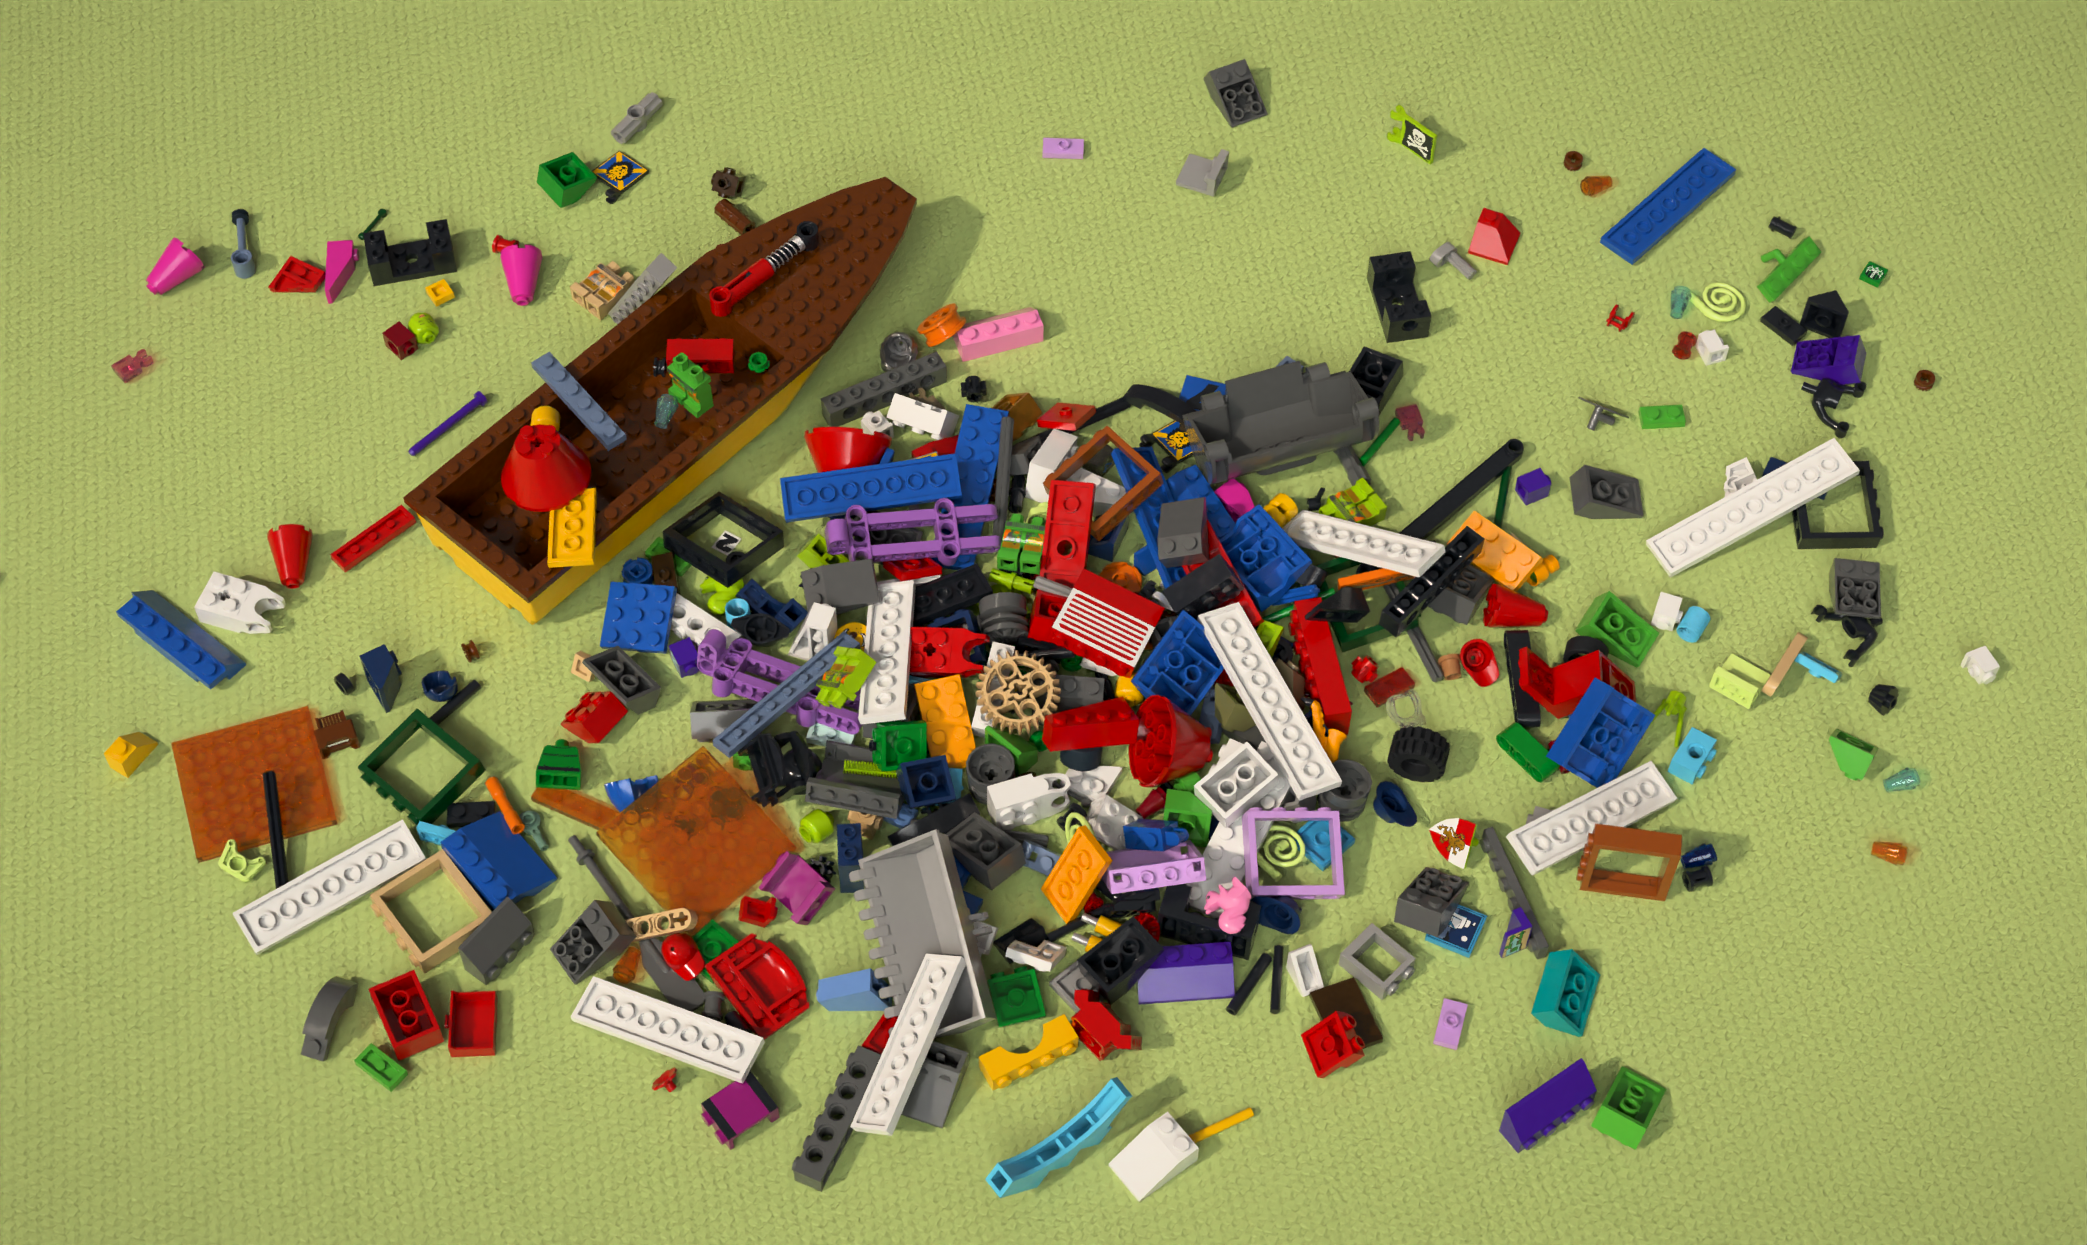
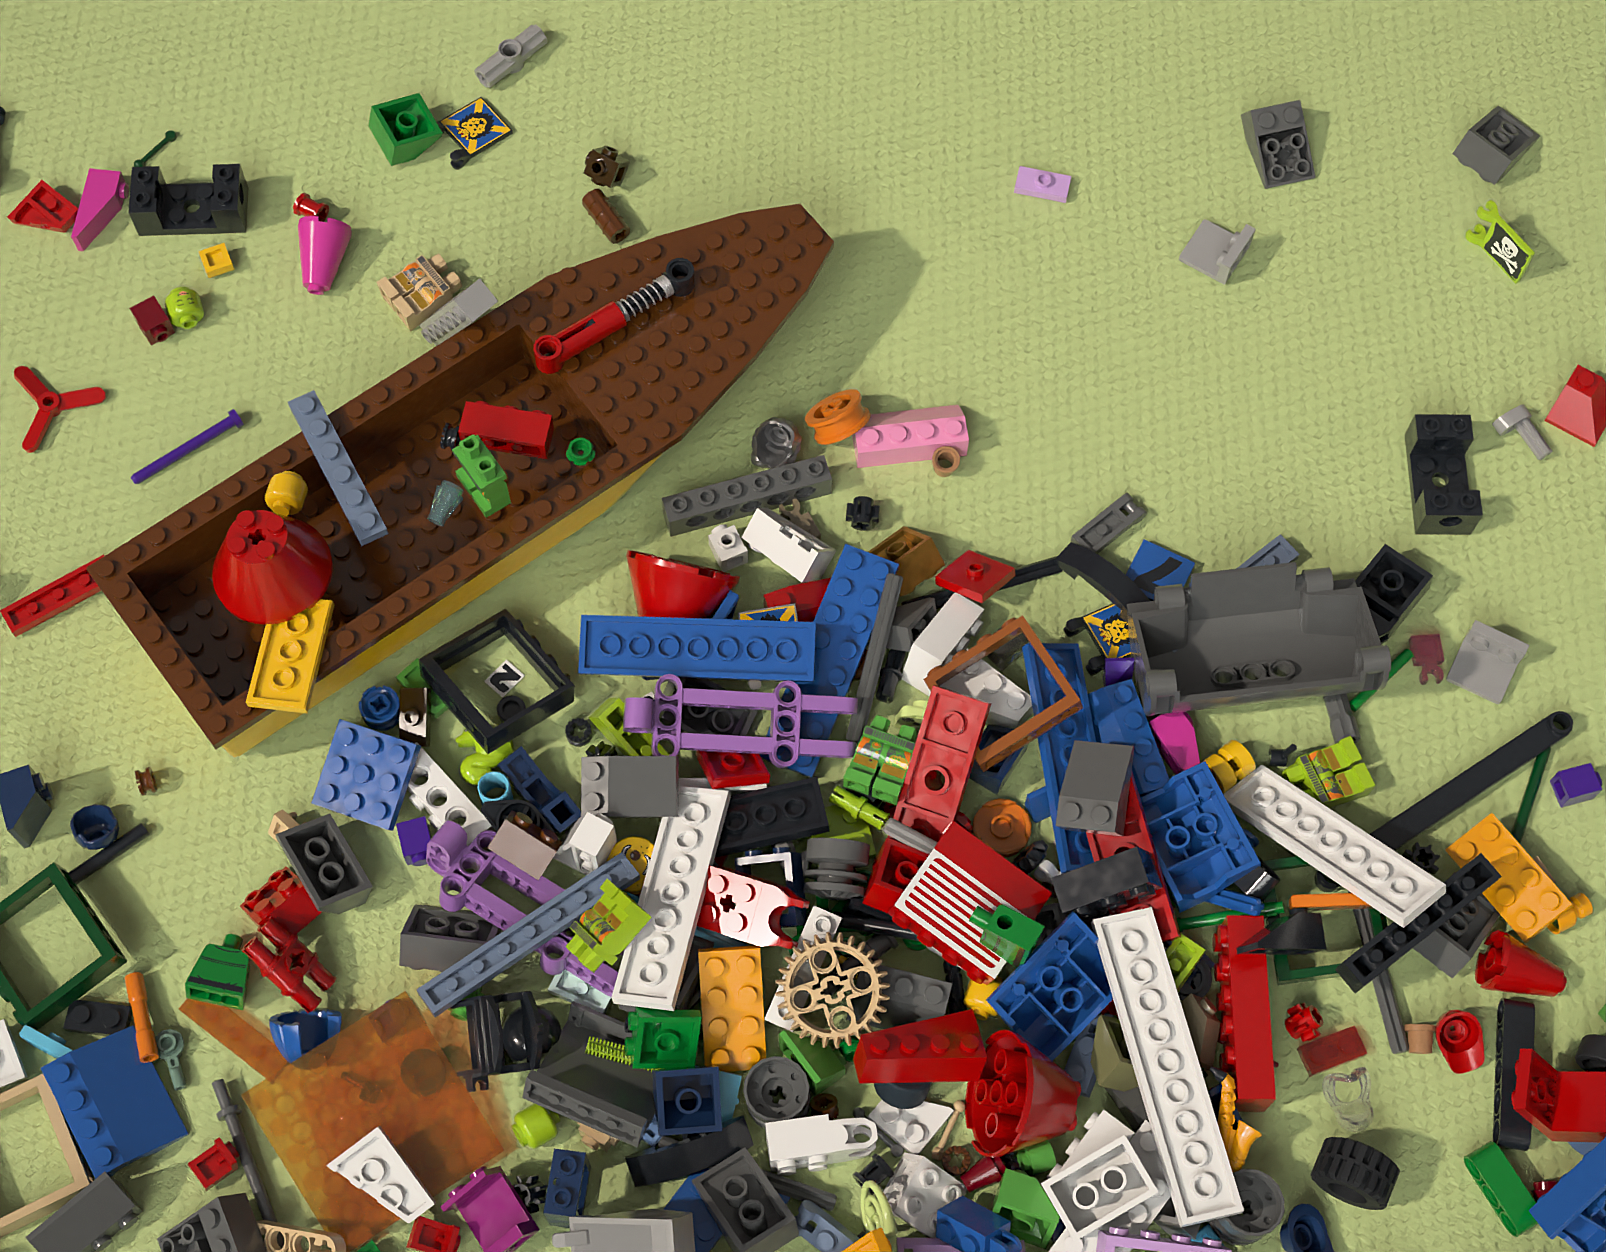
camera: 10 degrees right, 10 degrees up
(334, 410) = (61, 402): none -> red piece
(583, 890) = (215, 1164): none -> red bracket
(610, 747) = (289, 964): none -> red pin
(713, 870) = (384, 1174): none -> white wing
(770, 638) = (525, 844): none -> brick
(790, 575) = (581, 724): none -> black bush
(1028, 339) = (947, 453): none -> medium nougat piece
(1125, 766) = (937, 1153): none -> tan hinge
(1130, 794) = (957, 1151): none -> reddish brown bush
(1138, 631) = (1007, 933): none -> green torso
(1160, 368) = (1109, 524): none -> dark grey plate
(1184, 461) = (1117, 670): none -> dark purple slope
(1396, 71) = (1495, 145): none -> dark grey slope
(1454, 415) = (1486, 662): none -> light grey bracket

